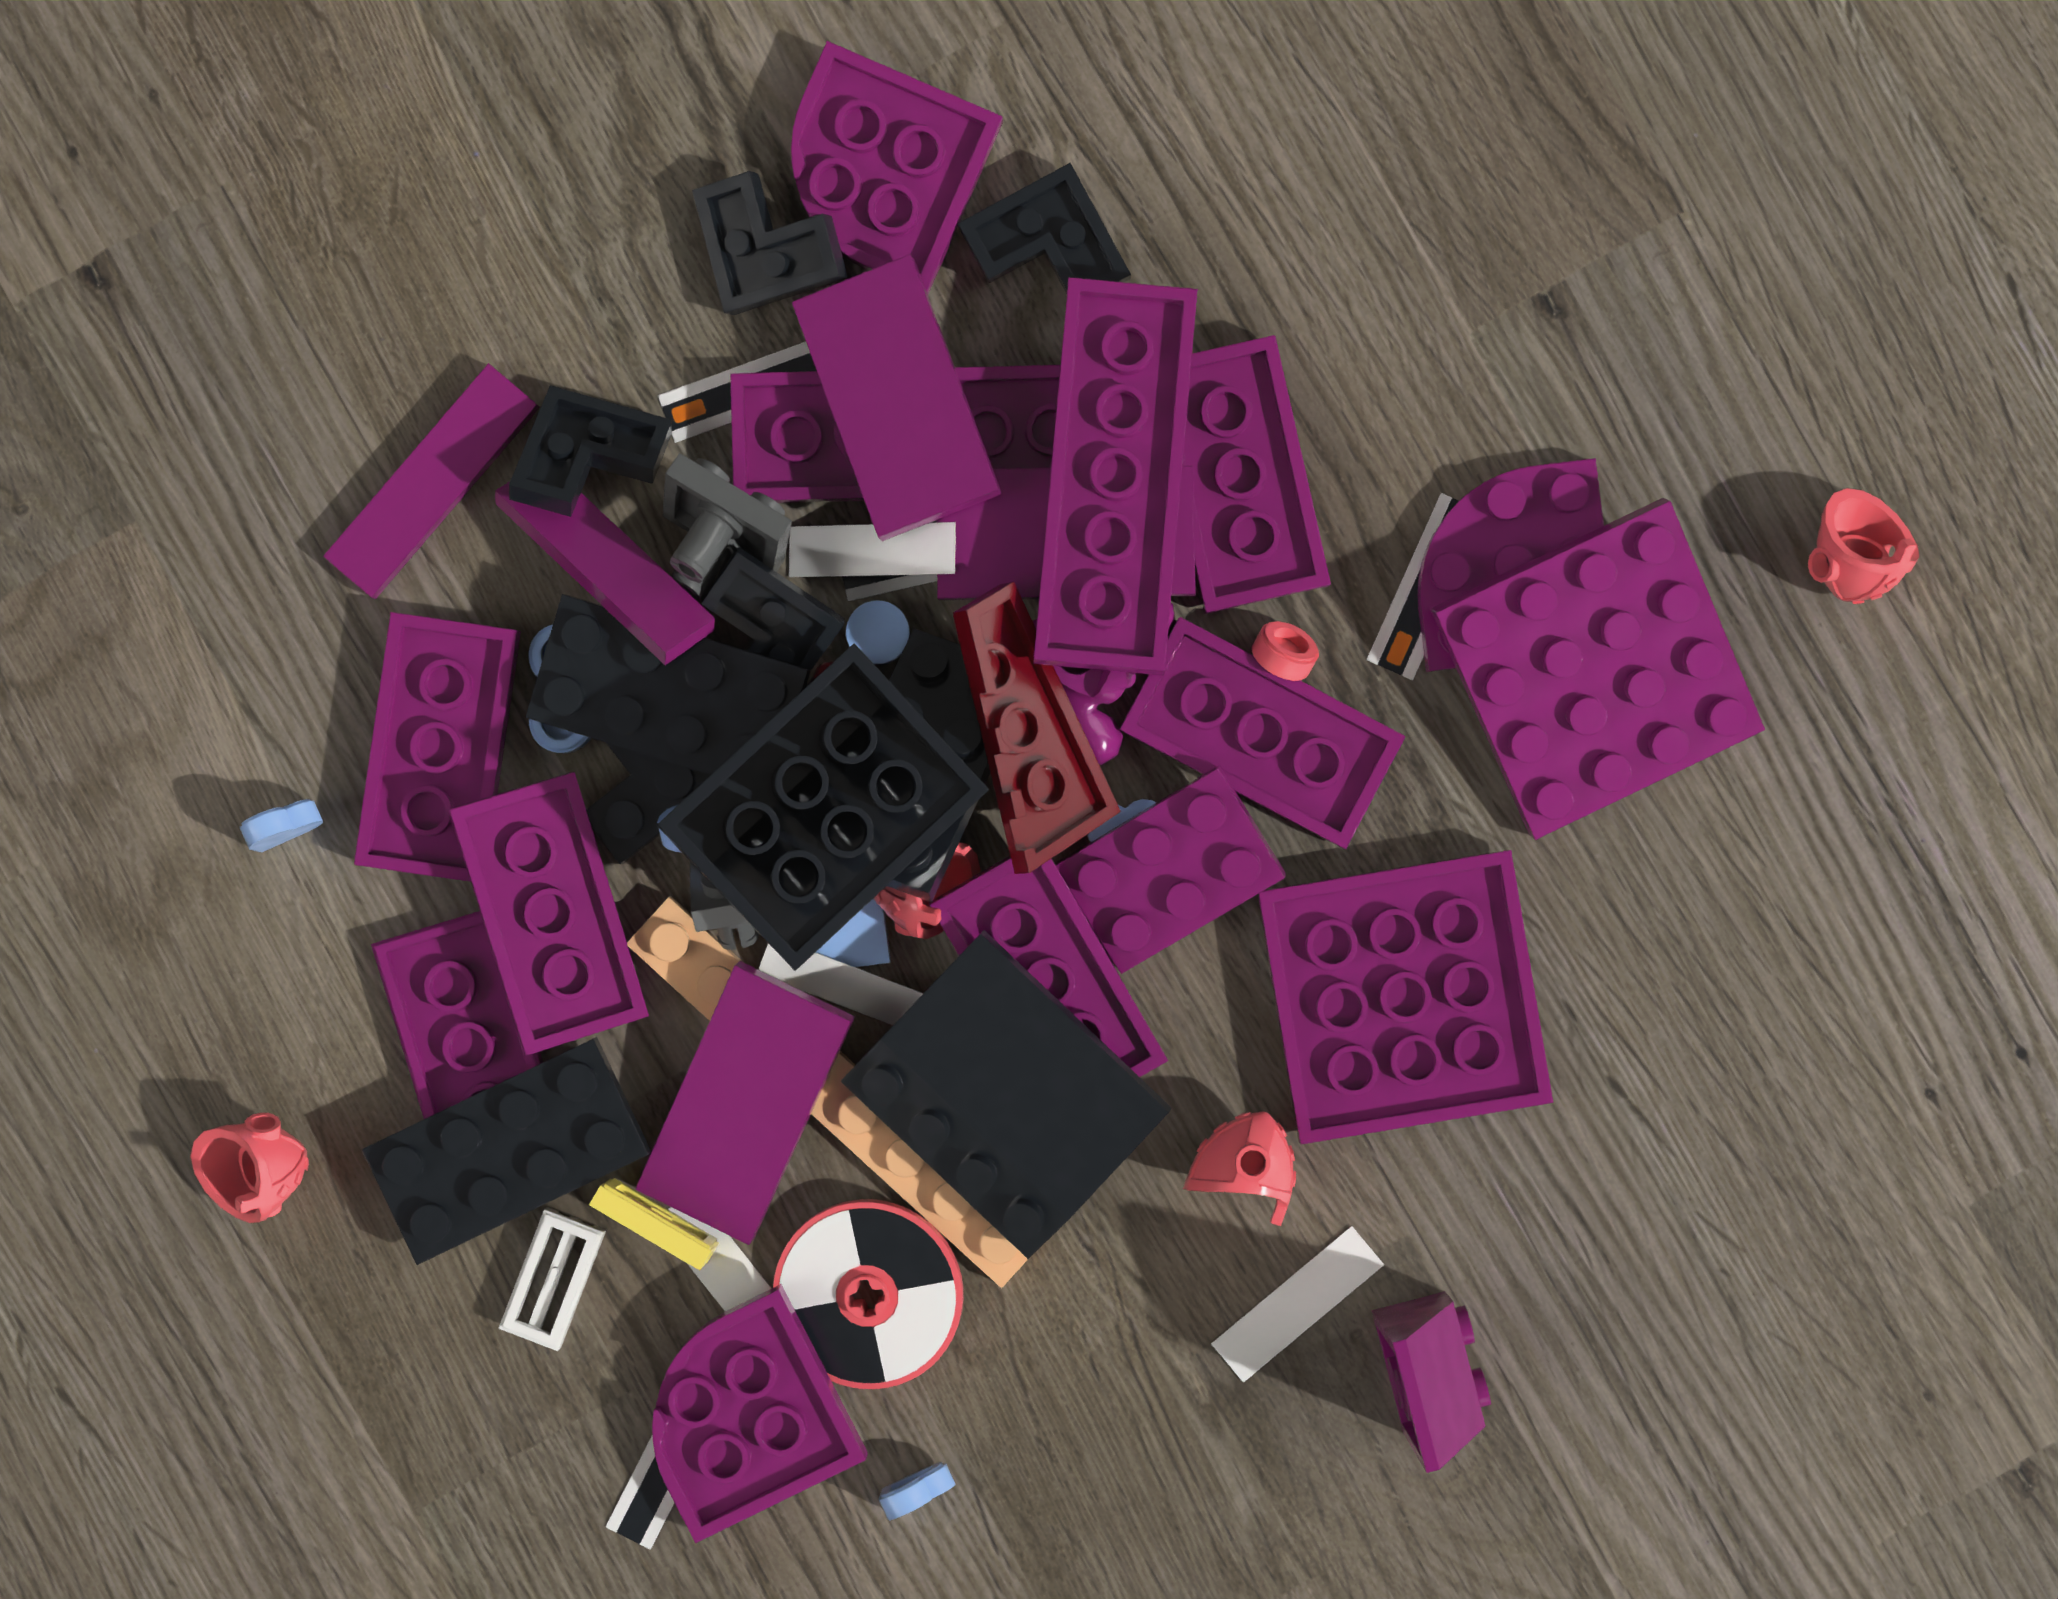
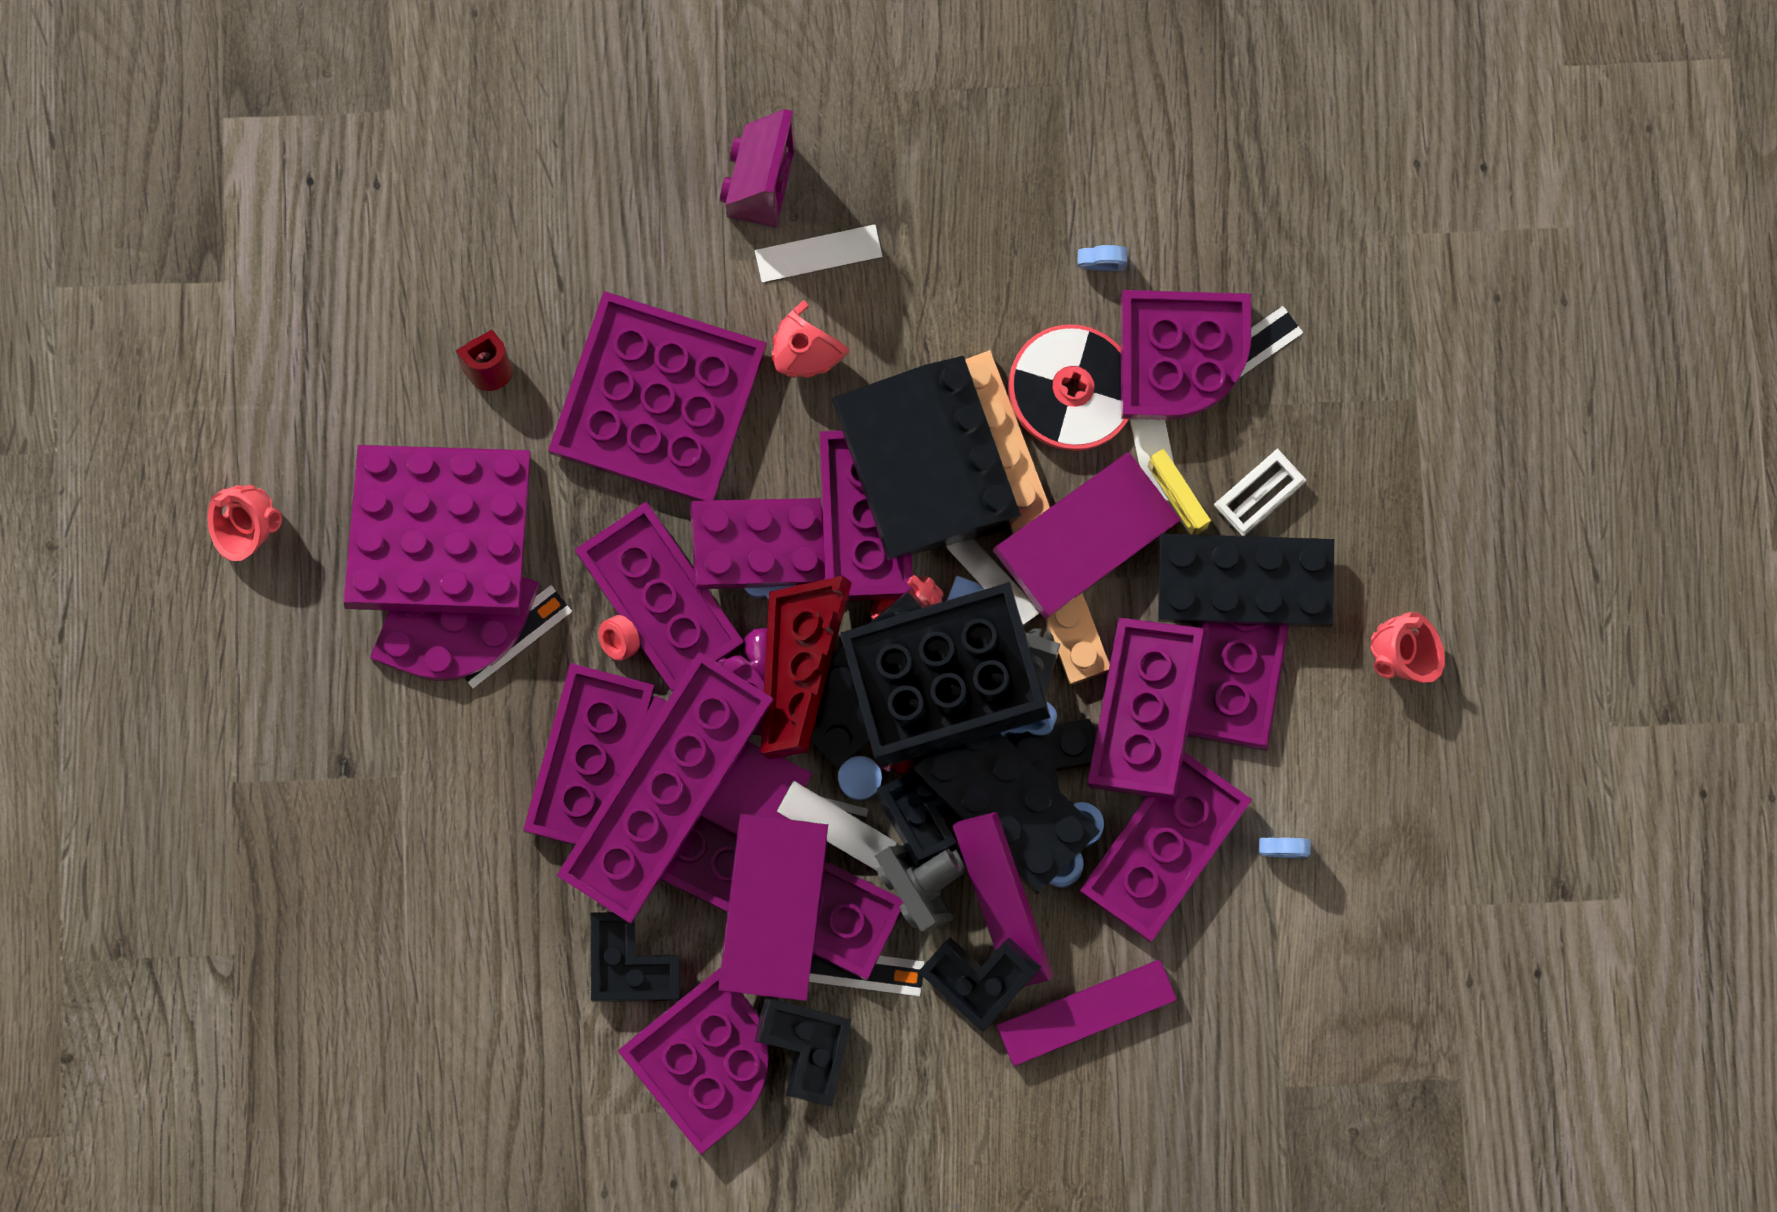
camera: 155 degrees left, 10 degrees down
(1656, 926) = (486, 362): none -> dark red plate

